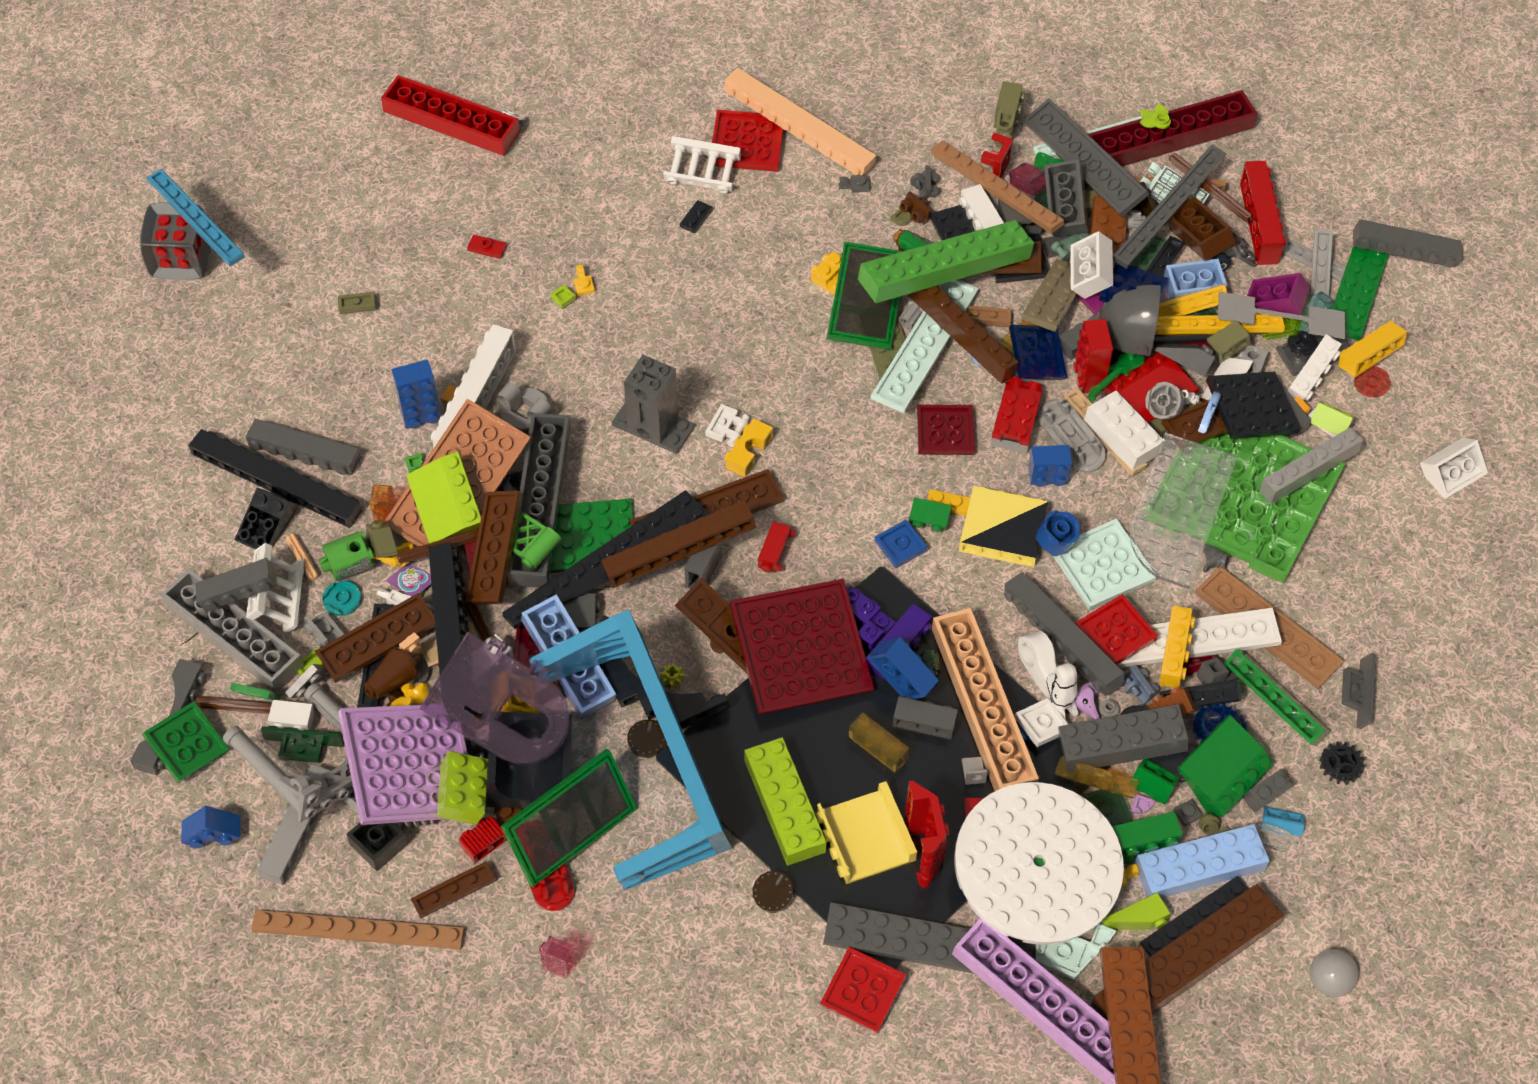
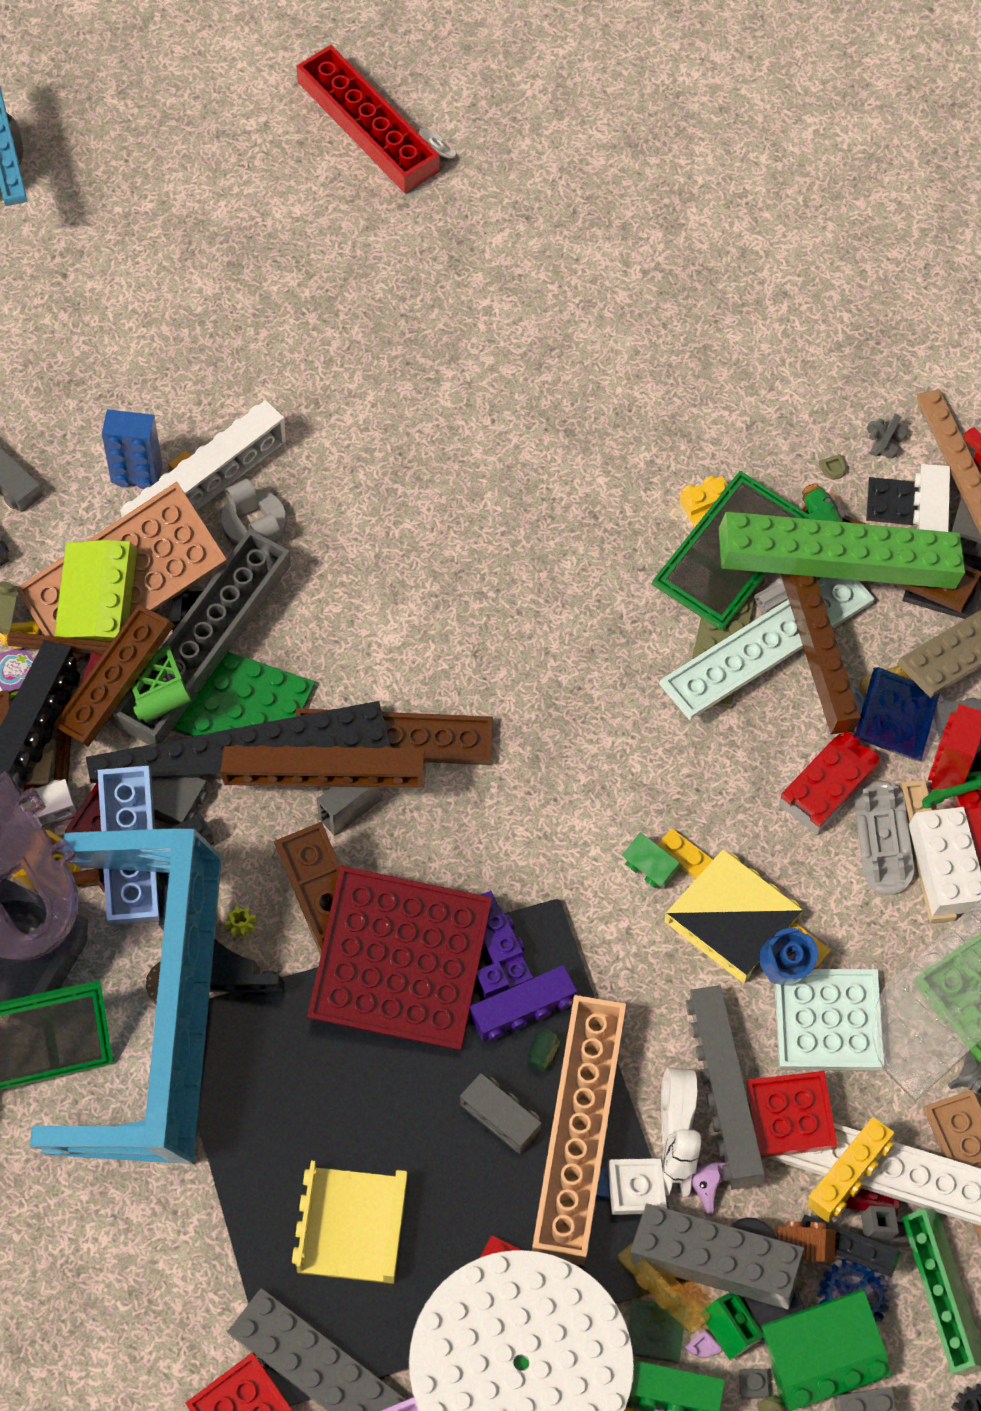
camera: 25 degrees right, 5 degrees up
(356, 302) = (138, 305): olive plate -> none
(382, 501) = (27, 561): clear orange brick -> none
(414, 462) = (95, 526): bright green tile -> none
(486, 246) = (323, 298): red plate -> none
(562, 296) = (374, 397): lime plate -> none
(583, 284) = (408, 392): yellow plate -> none
(653, 406) = (393, 582): dark grey brick -> none
(696, 216) = (586, 362): black plate -> none
(697, 149) = (629, 279): white fence -> none
(722, 422) = (473, 634): white plate -> none
(754, 135) = (700, 291): red plate -> none
(754, 435) = (500, 667): yellow arch -> none
(773, 891) = (208, 1240): dark brown tile -> none
(774, 547) = (445, 818): red brick -> none
(785, 801) = (278, 1138): lime brick -> none
(799, 122) = (772, 296): light nougat brick -> none
(856, 183) = (803, 401): dark grey plate -> none
(878, 742) = (428, 1118): clear yellow brick -> none
(900, 543) = (598, 881): blue plate -> none
(902, 668) = (500, 1042): blue brick -> none
(918, 208) = (858, 463): reddish brown hips -> none
(925, 817) = (402, 1294): red slope -> none
(945, 429) = (733, 761): dark red plate -> none
(973, 770) = (522, 1206): light grey bracket -> none
(990, 315) = (867, 639): medium nougat plate -> none
(1049, 465) = (830, 865): blue brick -> none
(1108, 713) = (728, 1213): light grey plate -> none
(1138, 685) = (782, 1194): sand blue hips -> none

